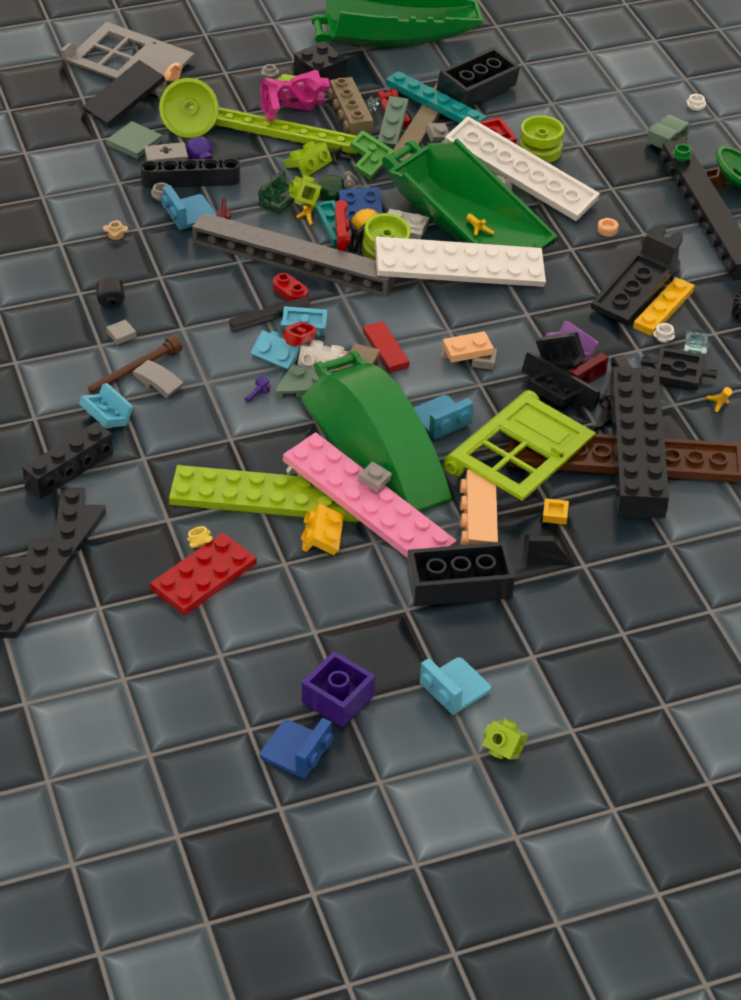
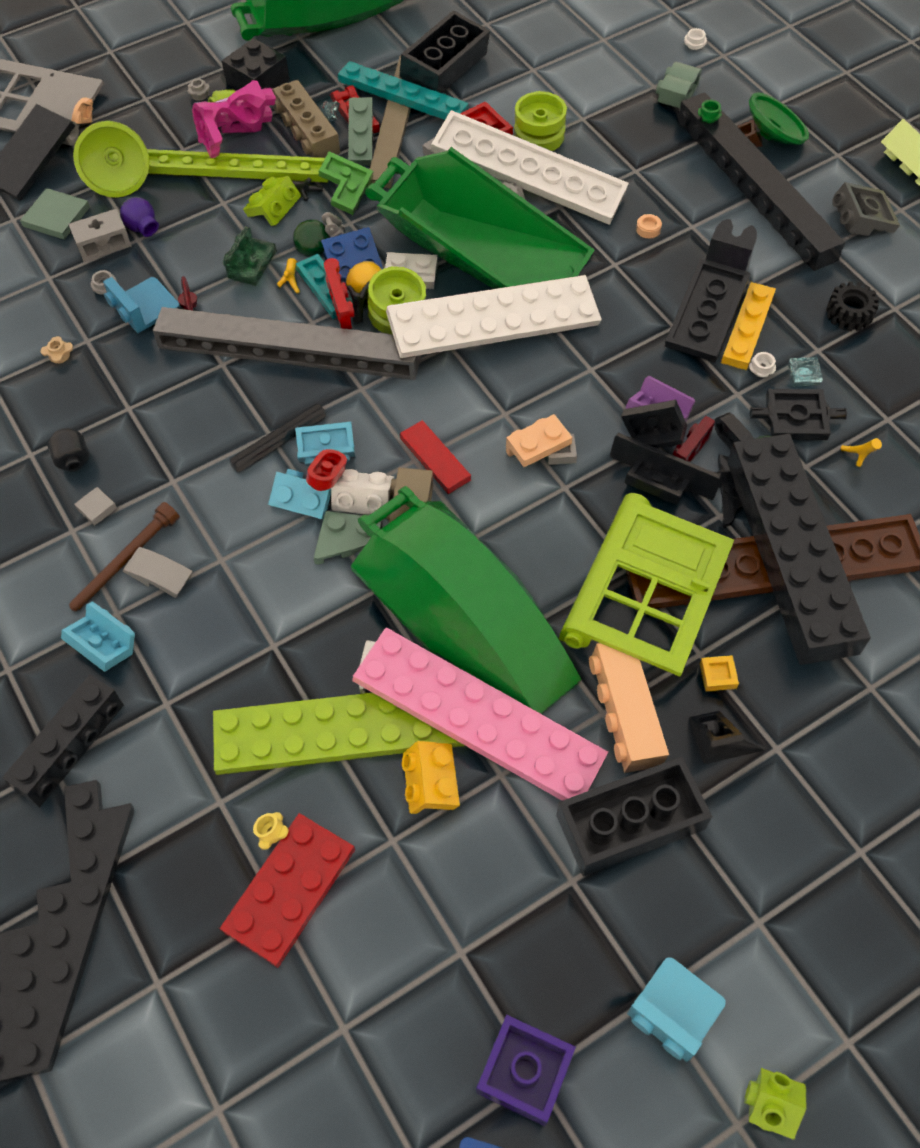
camera: 10 degrees left, 15 degrees up
(191, 172) = (133, 248): black beam -> none
(262, 386) = (296, 552): dark purple hand -> none
(289, 287) = (290, 390): red plate -> none
(304, 190) = (280, 250): lime brick -> none
(374, 477) = (481, 685): light grey plate -> none
(436, 132) = (415, 134): light grey plate -> none
(444, 415) = (534, 551): dark azure bracket -> none
(478, 225) = (499, 255): yellow bar -> none

